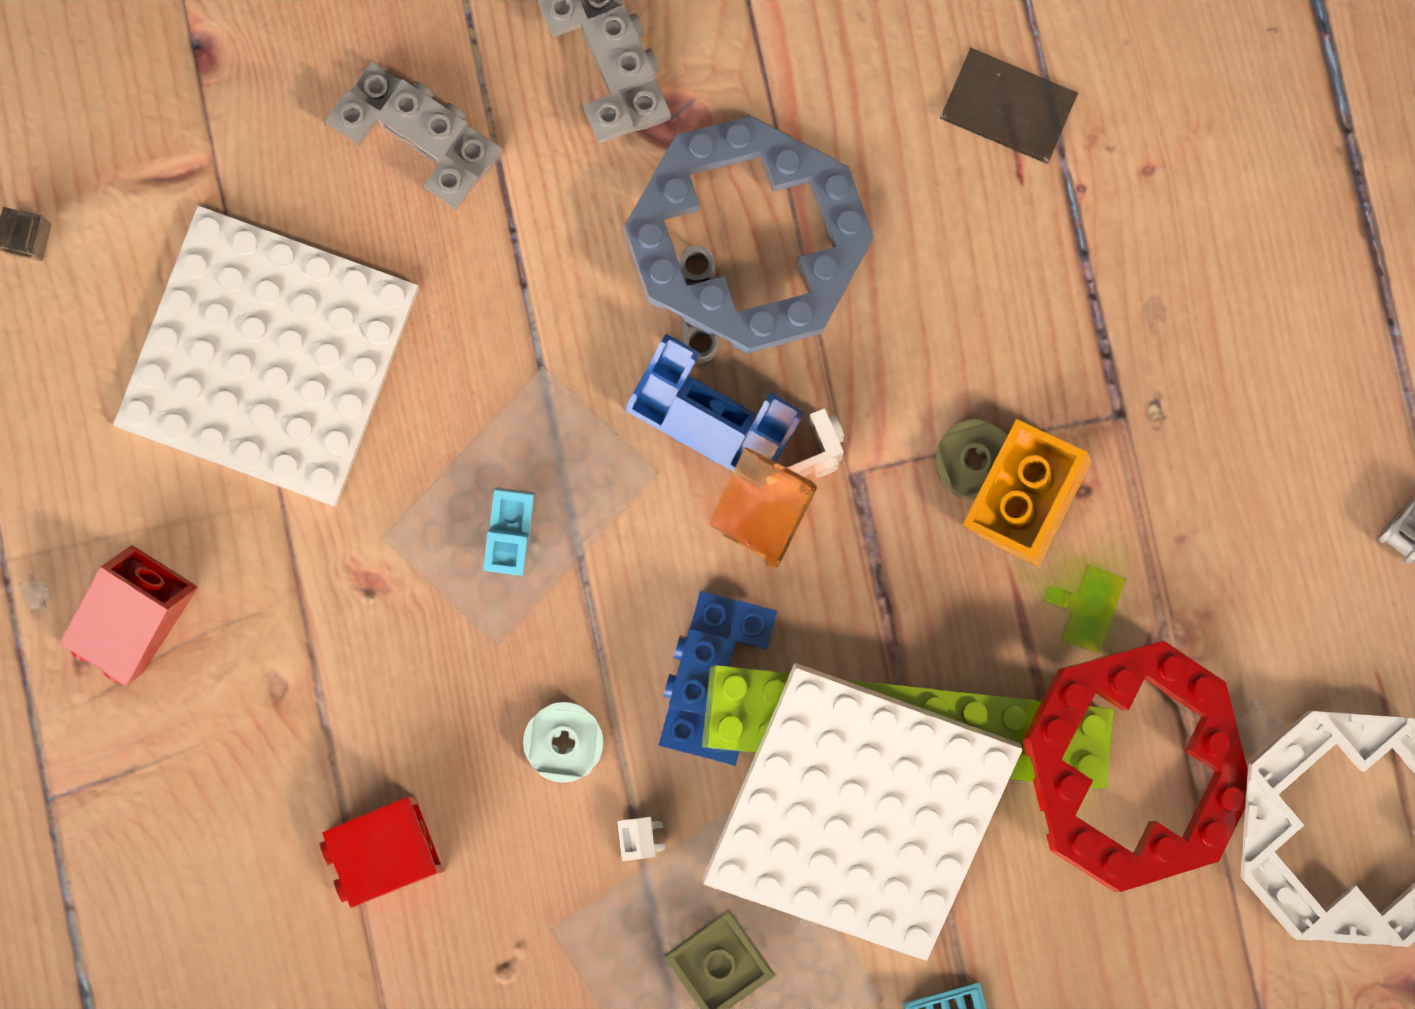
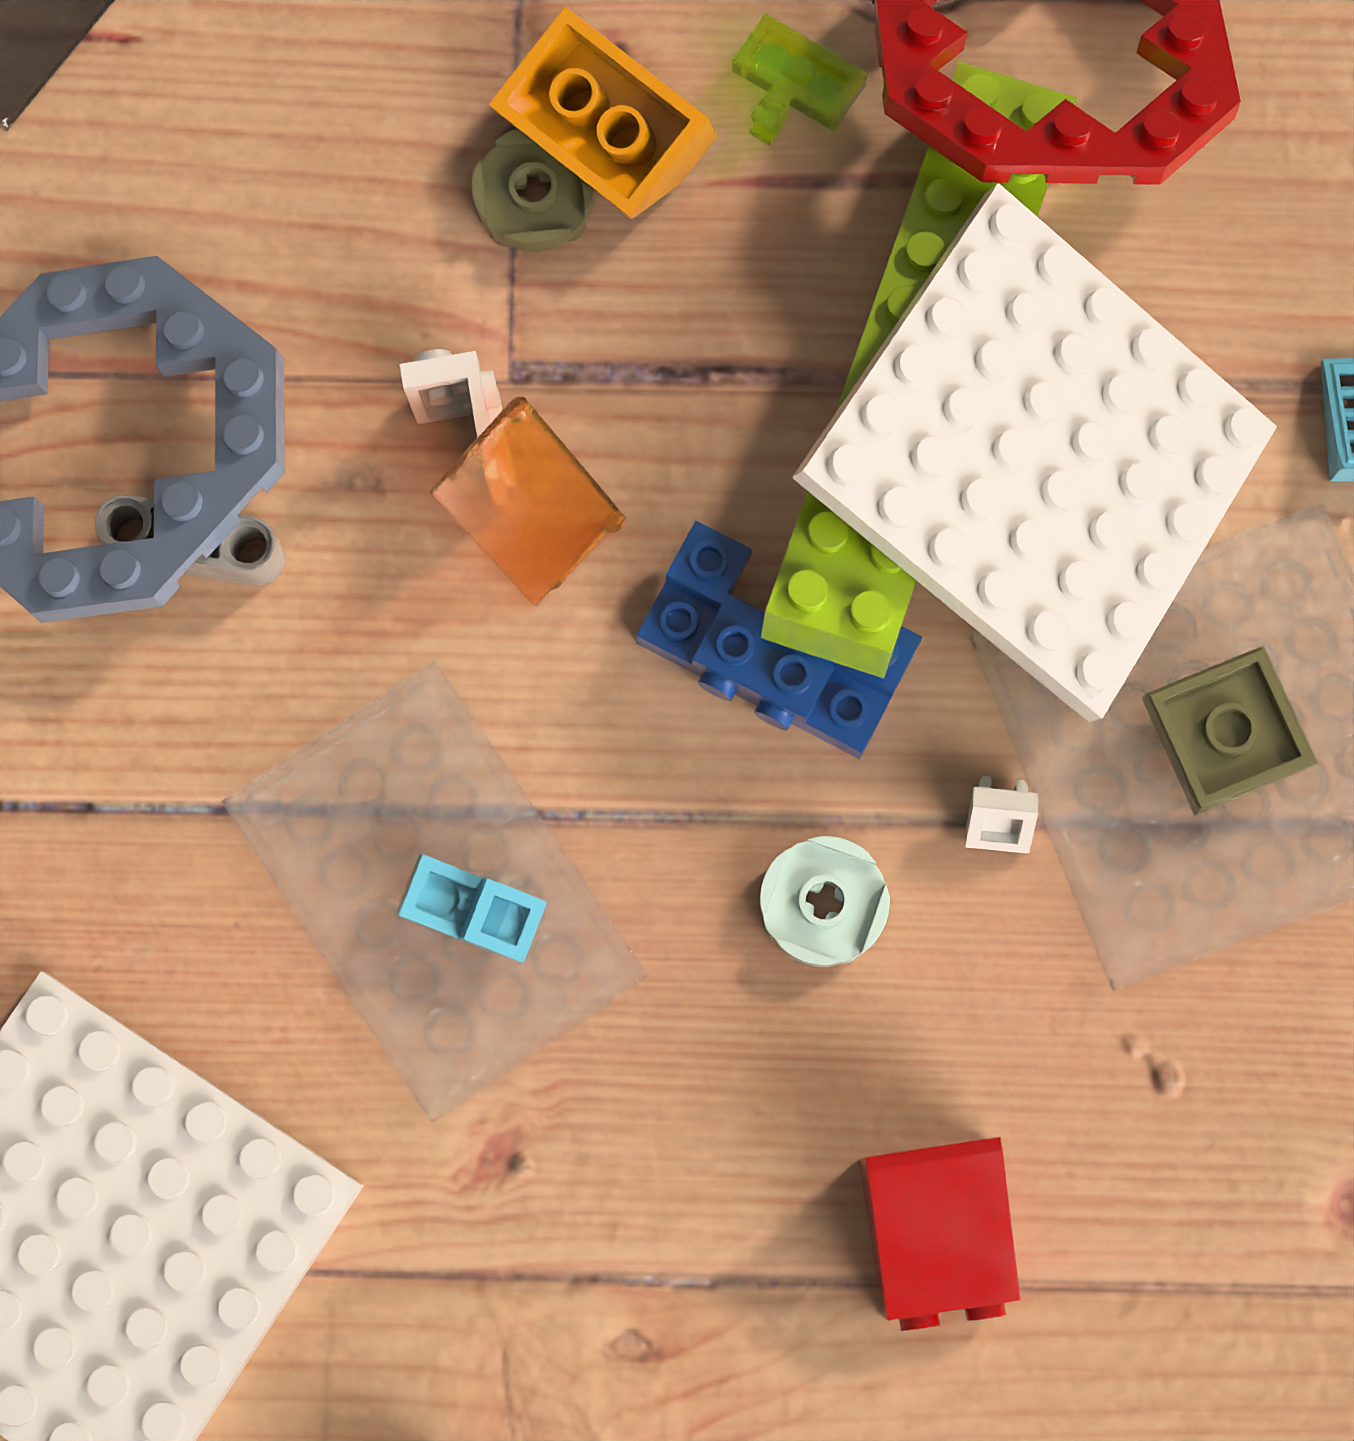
camera: 75 degrees left, 5 degrees down
(704, 417) = (368, 565): bracket -> none

